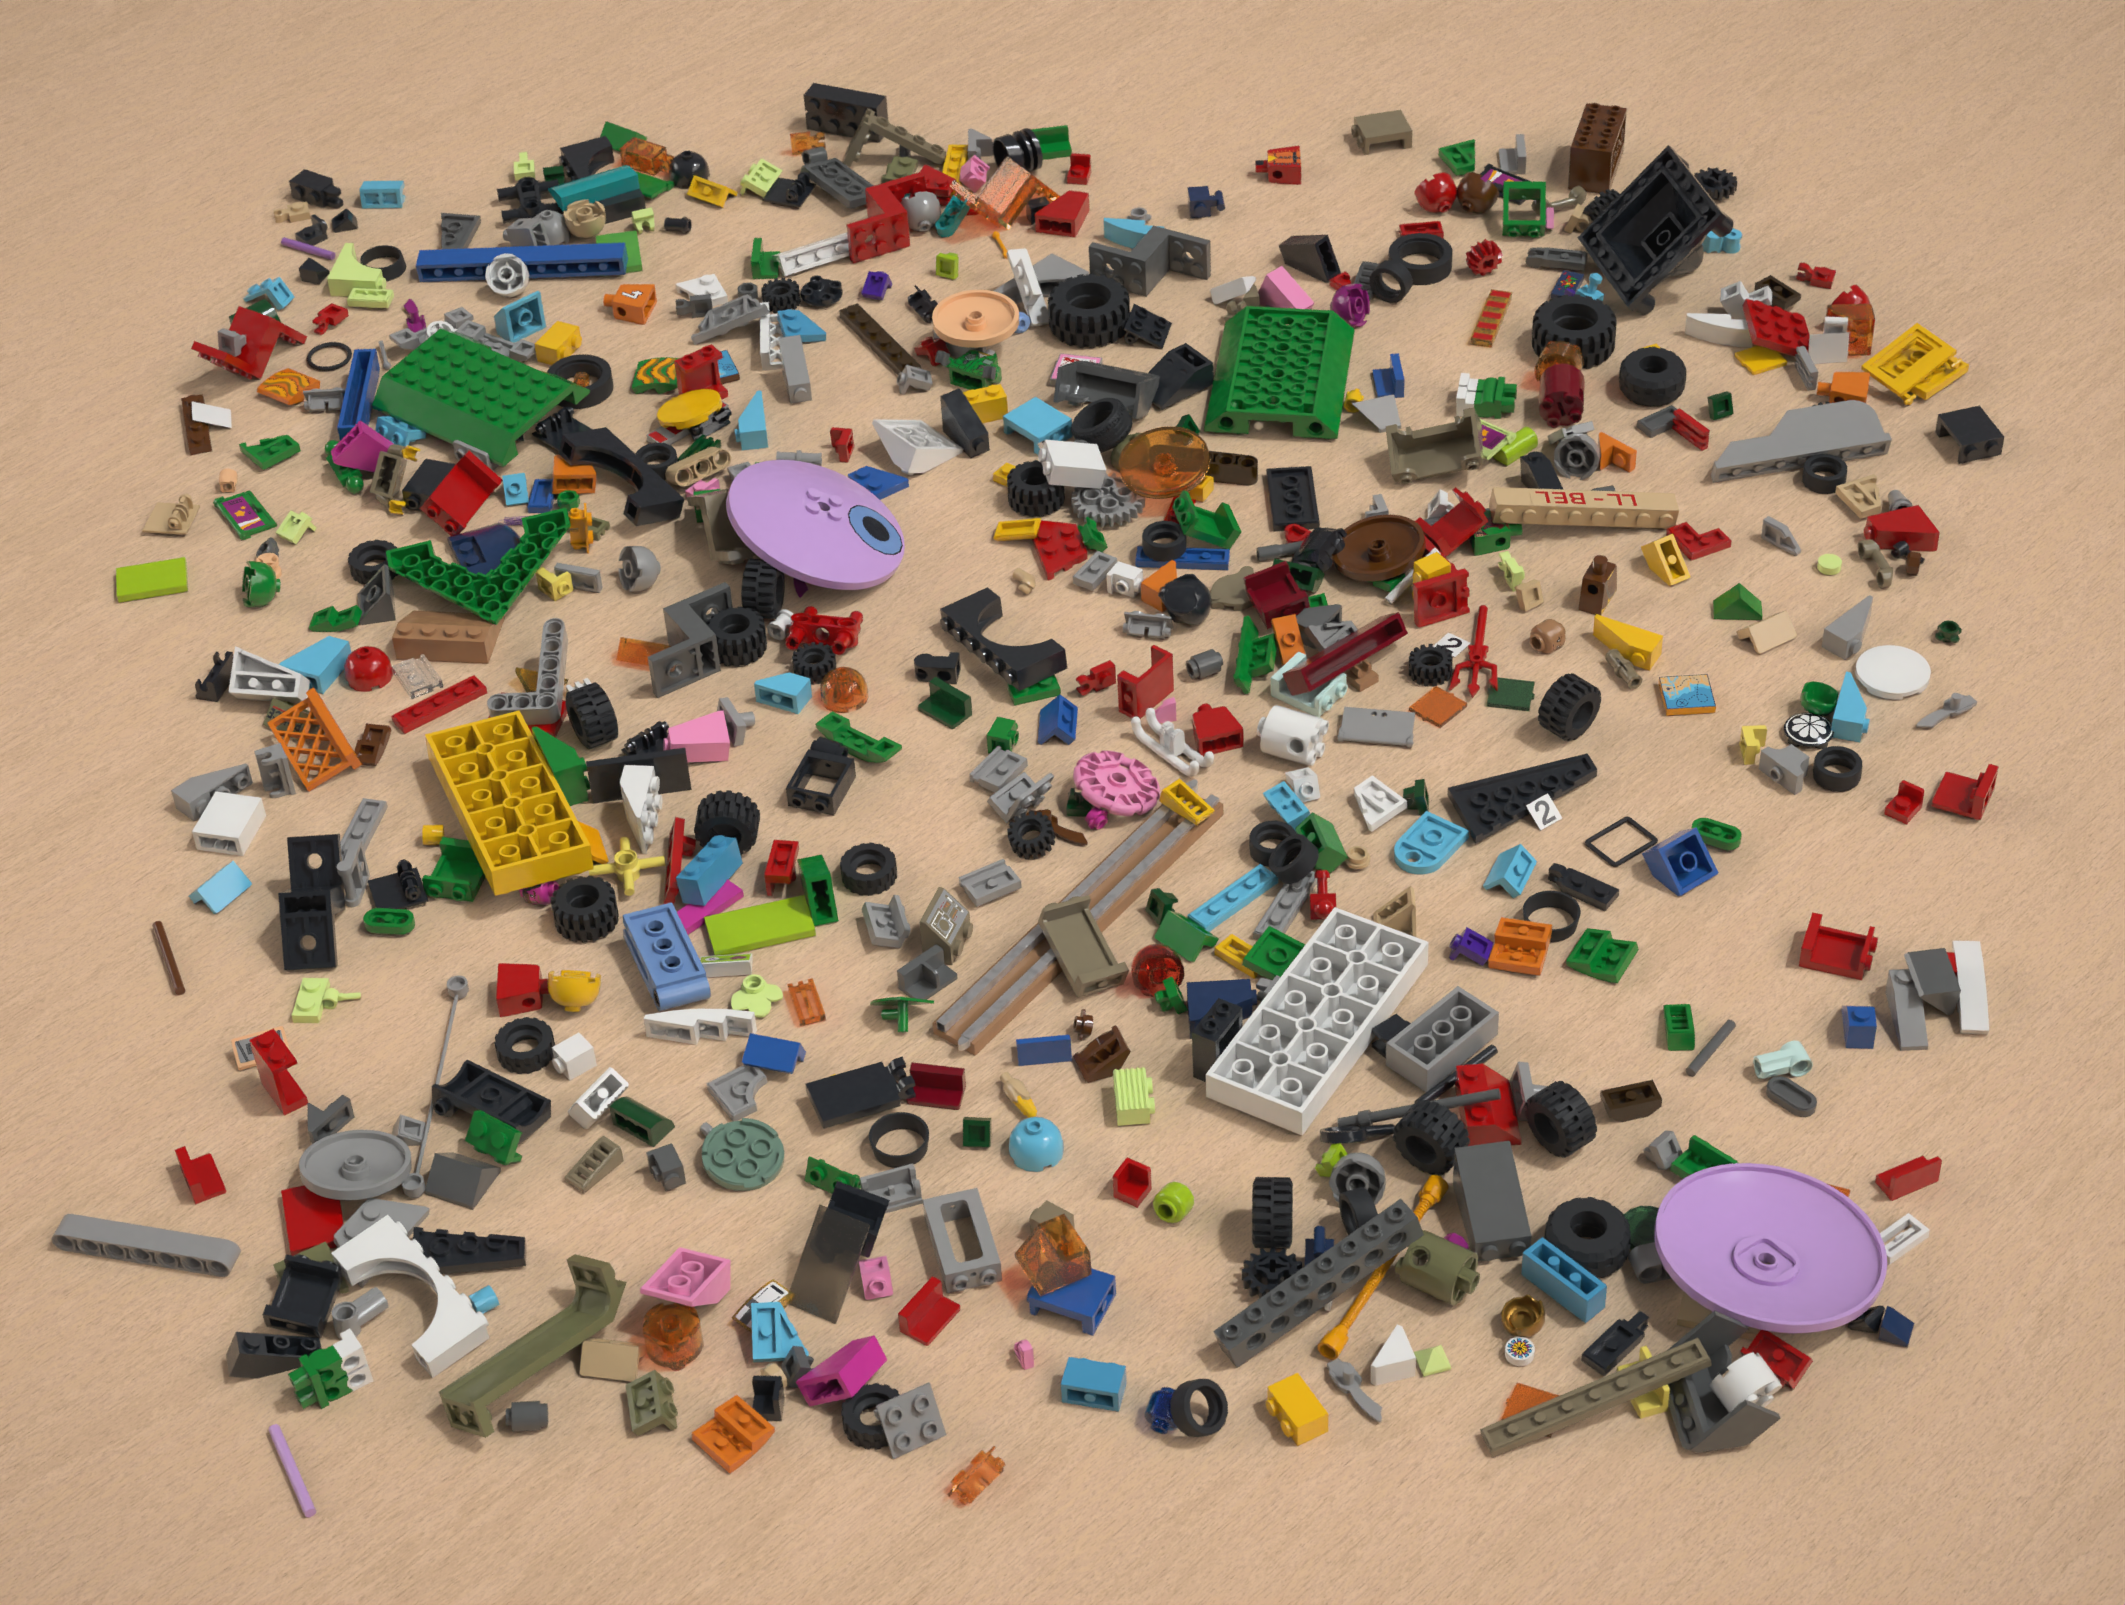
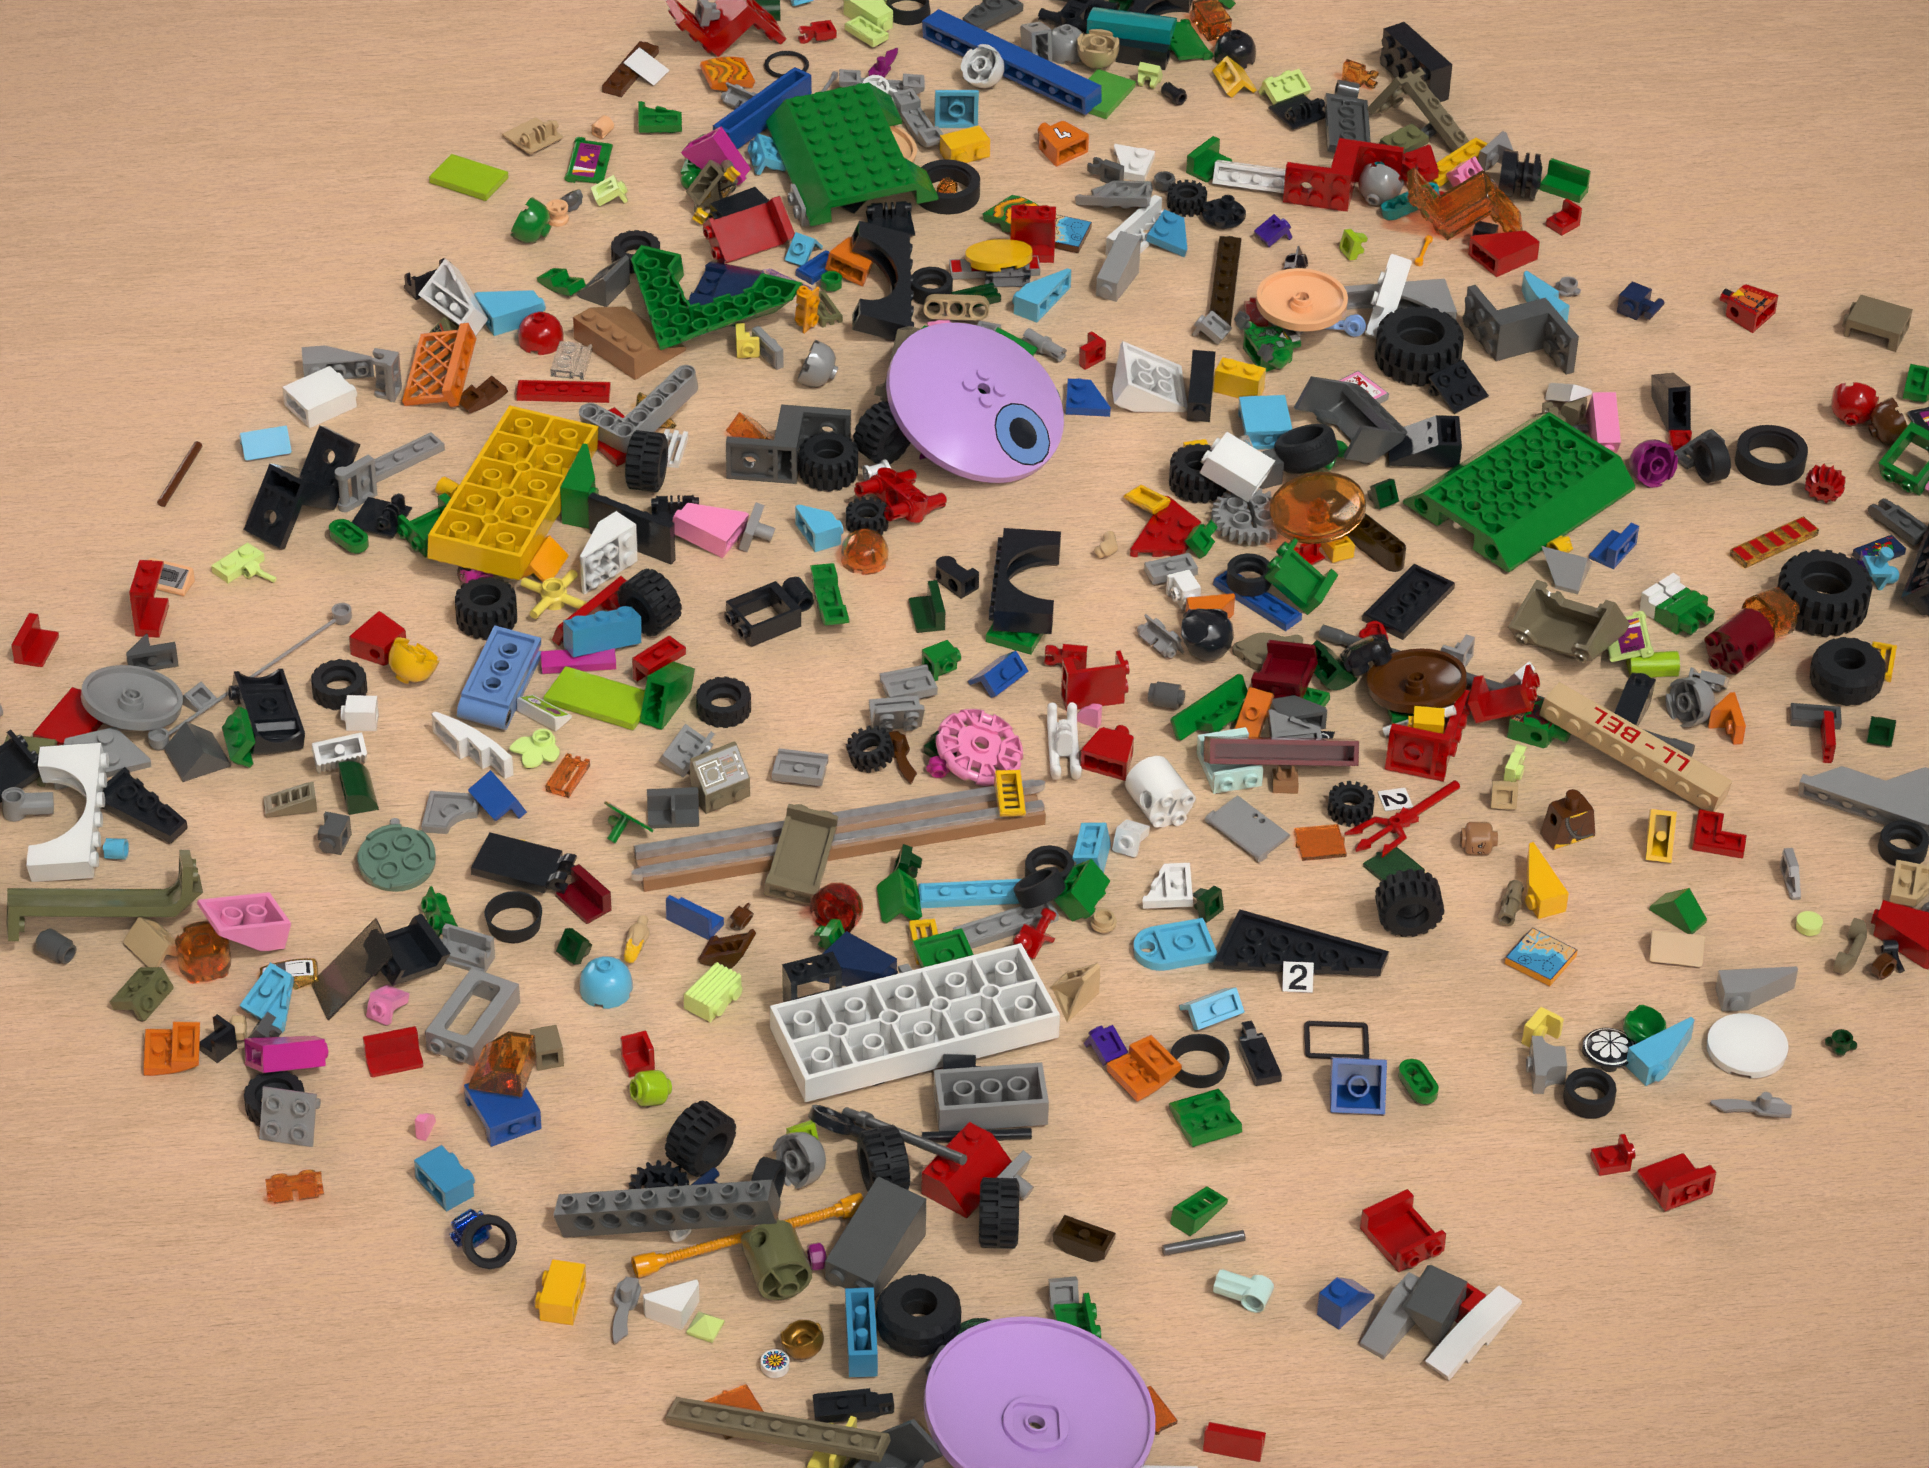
camera: 35 degrees right, 0 degrees up
(1423, 227) = (1809, 431): red tile -> none
(1791, 1096) = (1221, 1321): dark grey tile -> none

